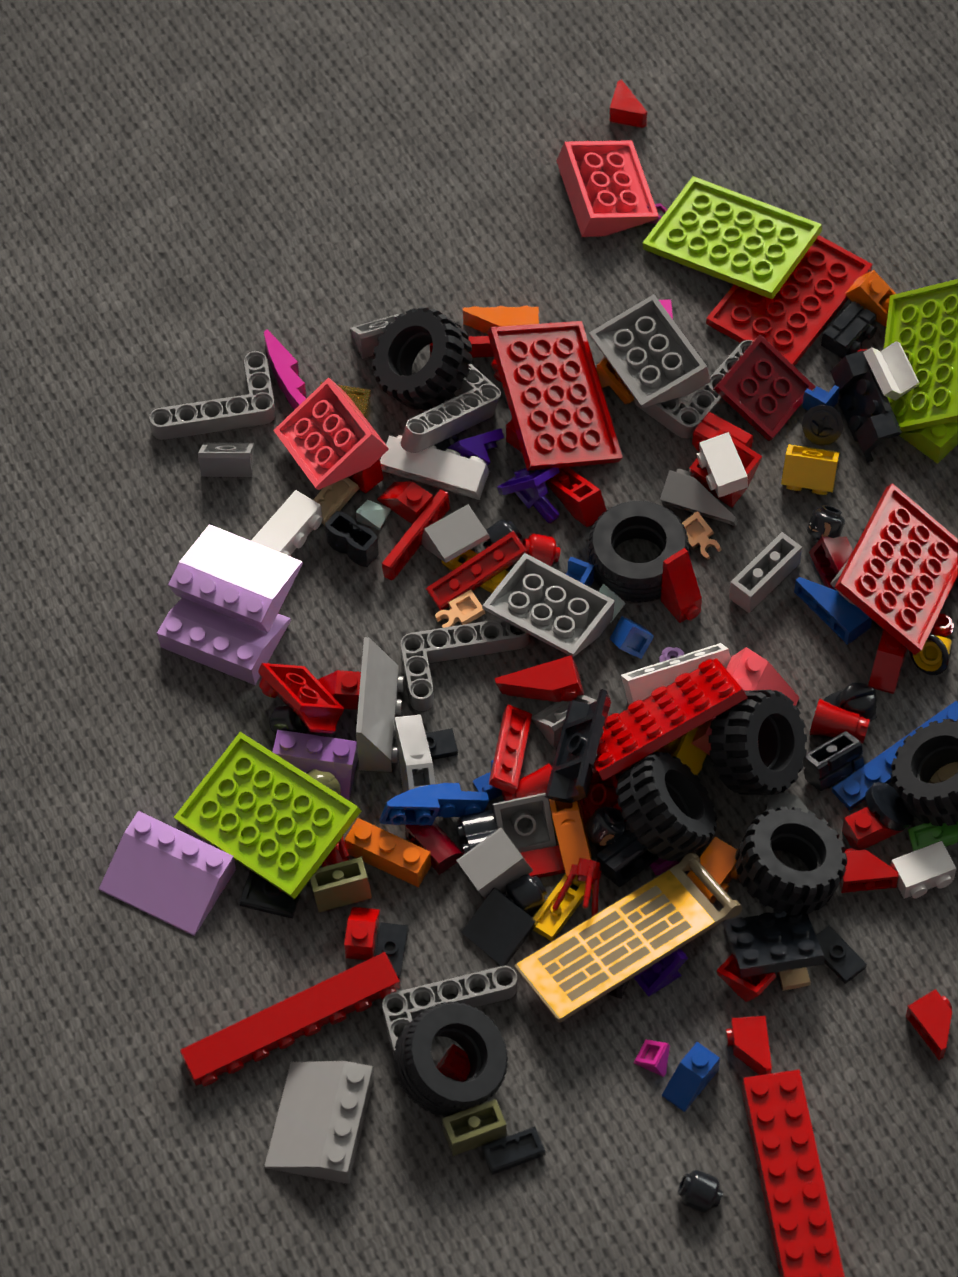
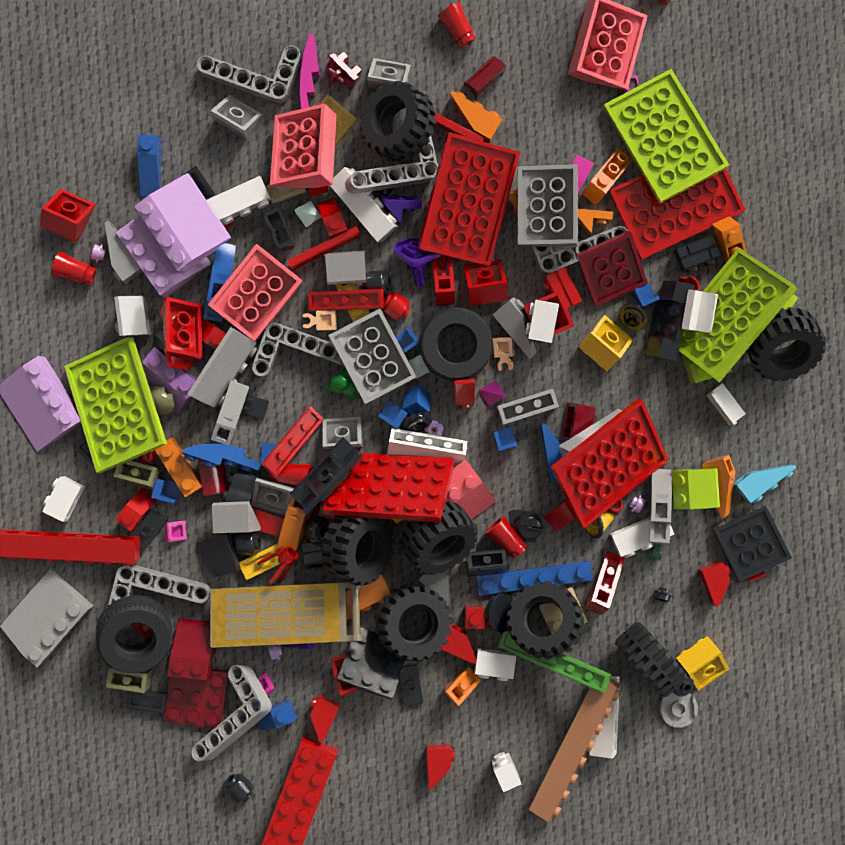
camera: 30 degrees right, 30 degrees up
(82, 655) = (66, 214): none -> red slope
(125, 706) = (72, 269): none -> red plant
(143, 676) = (98, 253): none -> lavender plate
(150, 550) = (149, 163): none -> blue slope
(181, 665) = (121, 259): none -> light grey slope
(227, 714) = (131, 316): none -> slope
(261, 965) = (63, 498): none -> white brick
(314, 629) = (220, 273): none -> blue slope
(323, 353) = (341, 72): none -> dark red hips
(363, 603) = (255, 293): none -> coral slope
(387, 892) = (166, 491): none -> blue panel
(423, 936) = (173, 531): none -> dark pink slope
(426, 248) = (457, 24): none -> red plant
(490, 280) = (485, 76): none -> dark red brick
(534, 653) = (342, 384): none -> green hair
(539, 1055) = (191, 650): none -> dark red slope
(549, 681) = (344, 409): red slope -> none
(575, 1114) = (197, 700): none -> dark red plate
(612, 668) = (393, 414): none -> blue panel
(632, 477) = (486, 283): none -> red slope
(641, 1000) = (275, 651): none -> lavender plate
(642, 1099) = (236, 719): none -> light grey beam
(649, 643) = (417, 422): none -> black gear
(694, 308) = (606, 176): none -> orange slope
(713, 349) = (586, 218): none -> orange slope
(716, 586) = (492, 393): none -> magenta slope
(762, 624) = (504, 439): none -> blue panel
(825, 523) = (587, 393): black head -> none
(899, 917) = (462, 686): none -> orange slope

